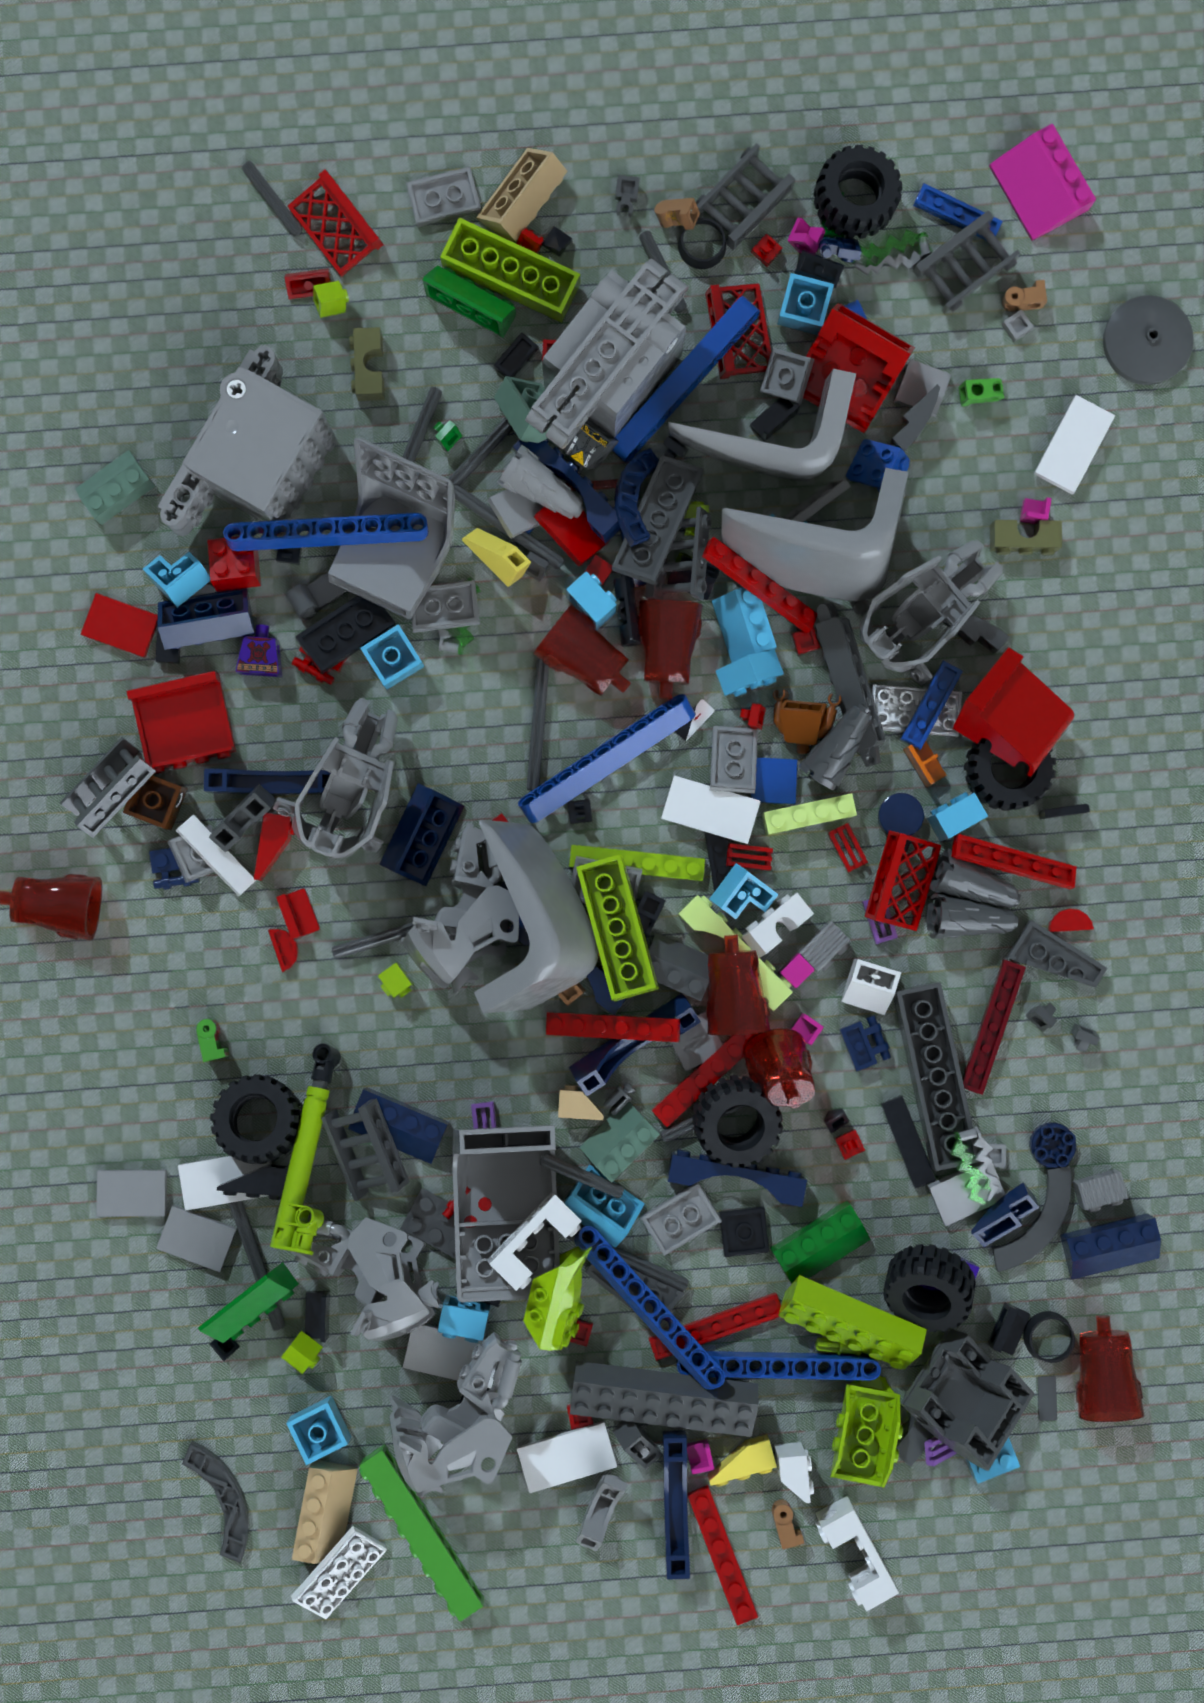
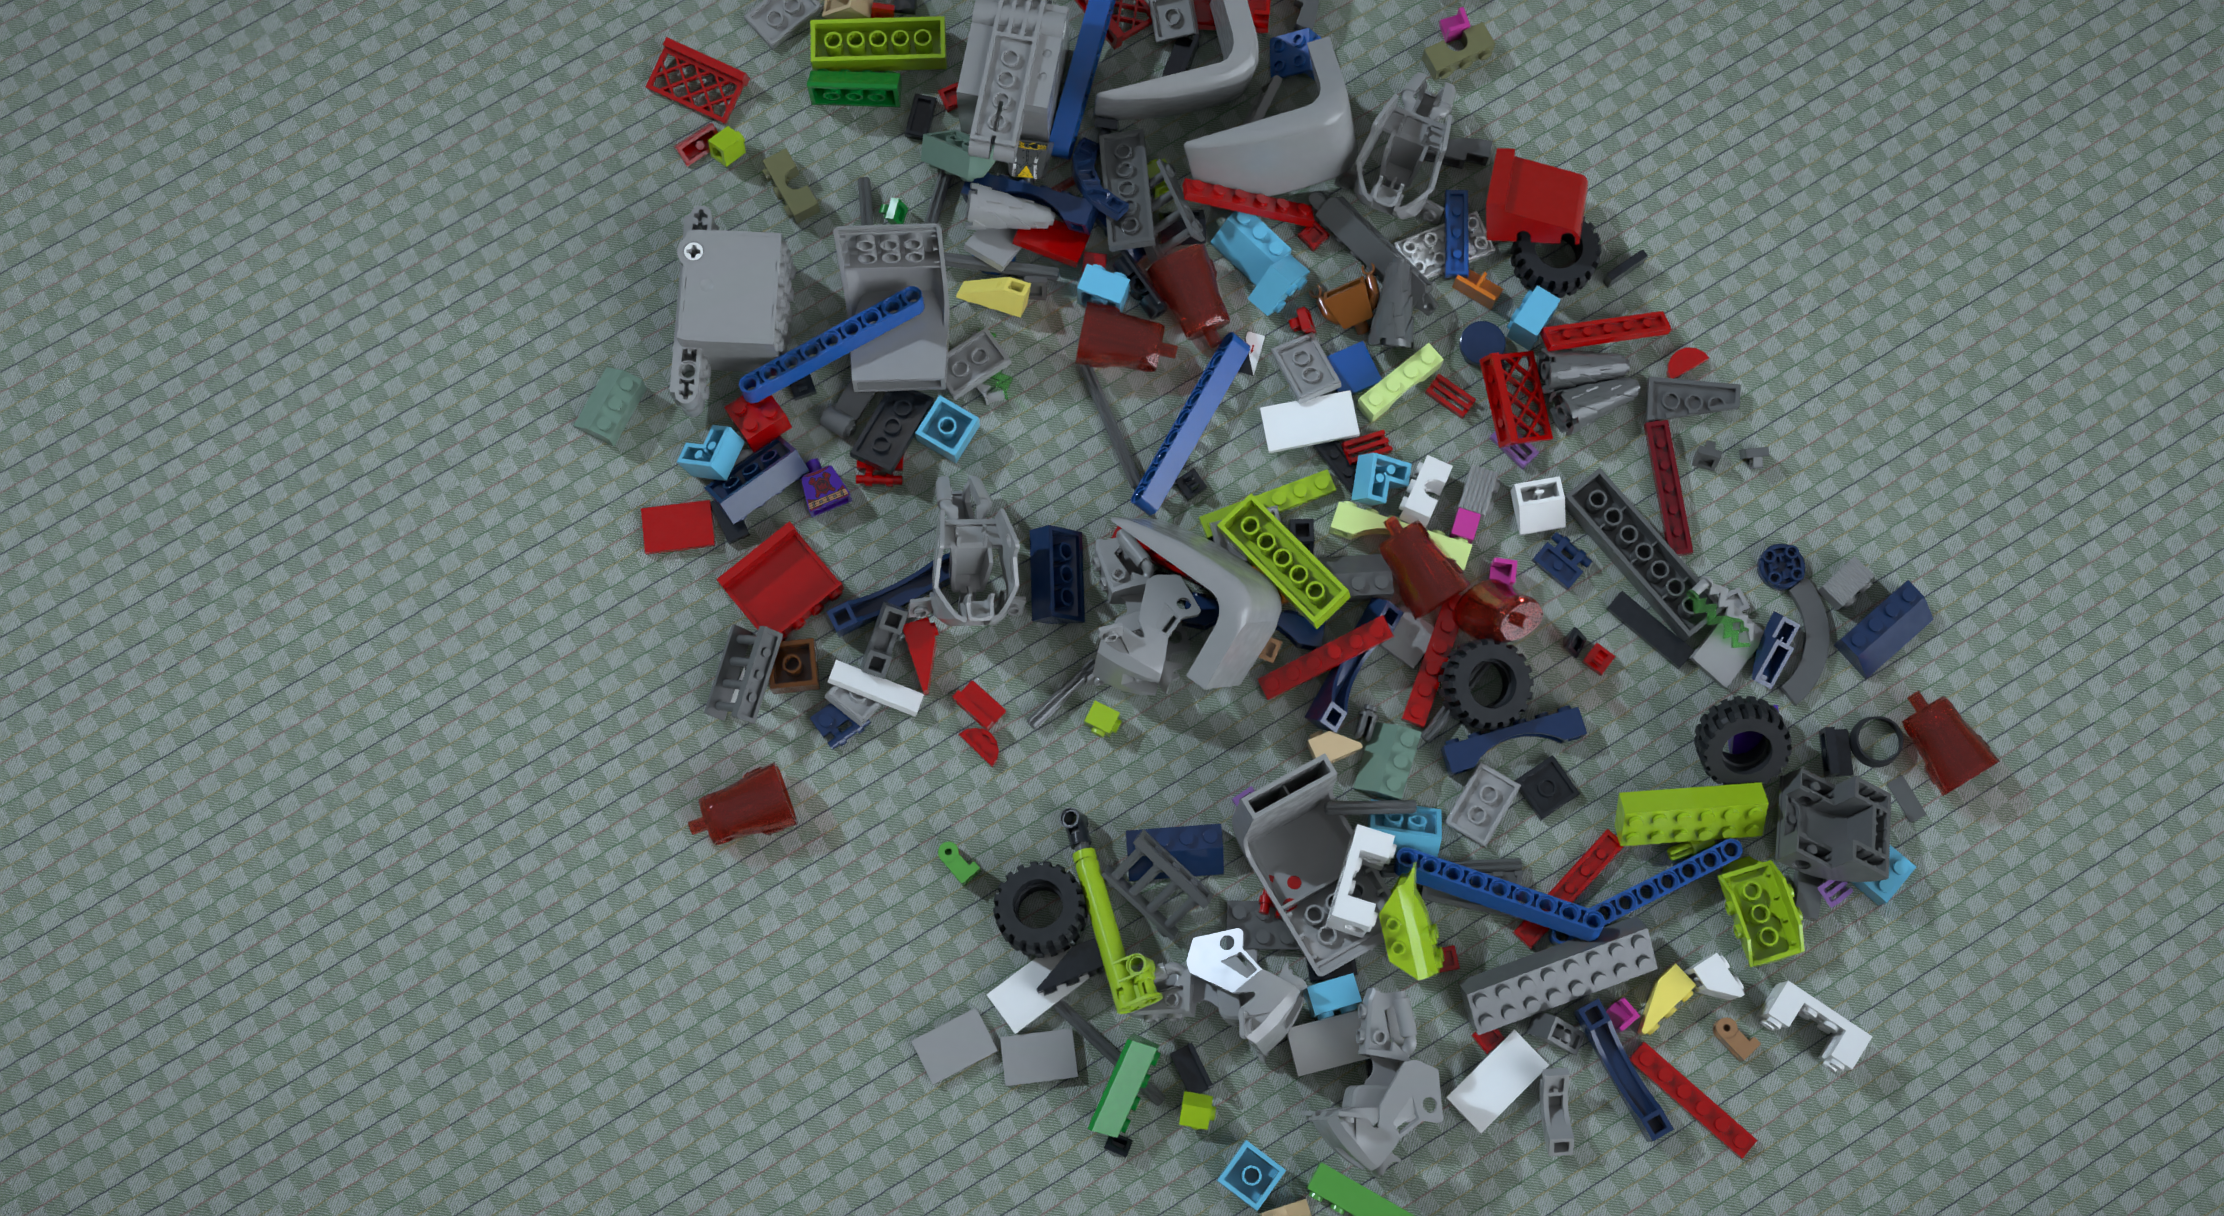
camera: 20 degrees left, 10 degrees down
(272, 198) = (628, 87): dark grey axle -> none
(821, 1242) = (1623, 759): green slope -> none

